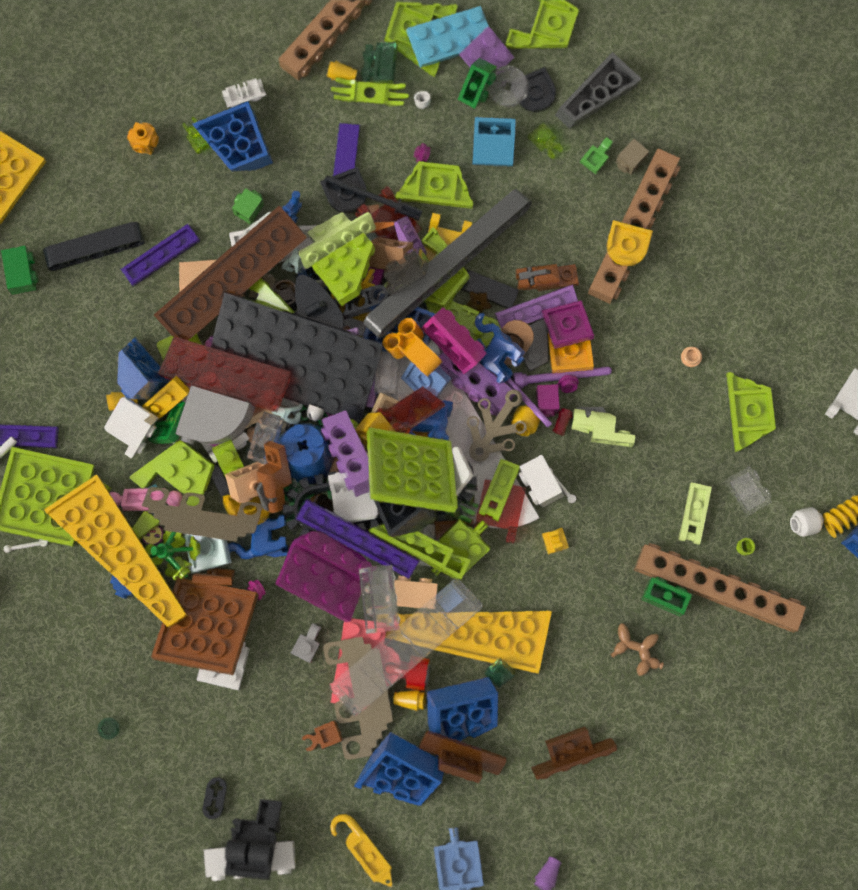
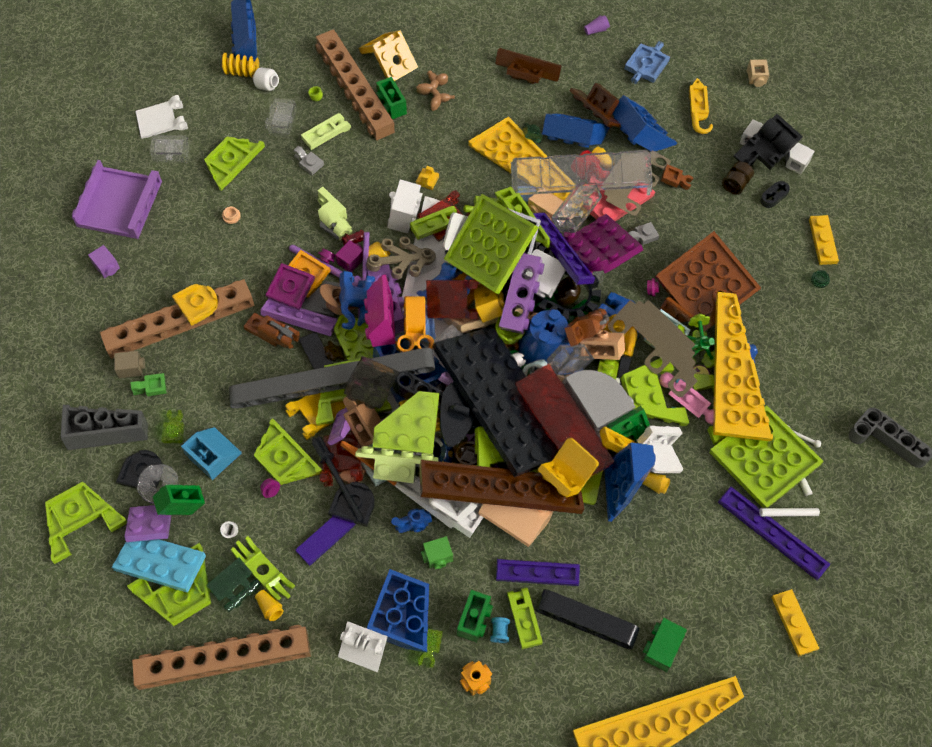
camera: 140 degrees left, 15 degrees down
(133, 780) = (823, 240): none -> yellow plate
(142, 210) = (524, 619): none -> lime plate
(153, 187) = (500, 630): none -> dark azure bush
(179, 177) = (473, 616): none -> green brick
(188, 329) = (569, 468): none -> yellow bracket
(261, 782) = (737, 178): none -> dark brown wheel
(677, 468) = (309, 162): none -> light grey plate
(725, 651) = (385, 48): none -> bracket
(748, 223) = (104, 261): none -> medium lavender brick
(803, 288) = (116, 201): none -> medium lavender panel
(812, 374) = (170, 148): none -> clear brick

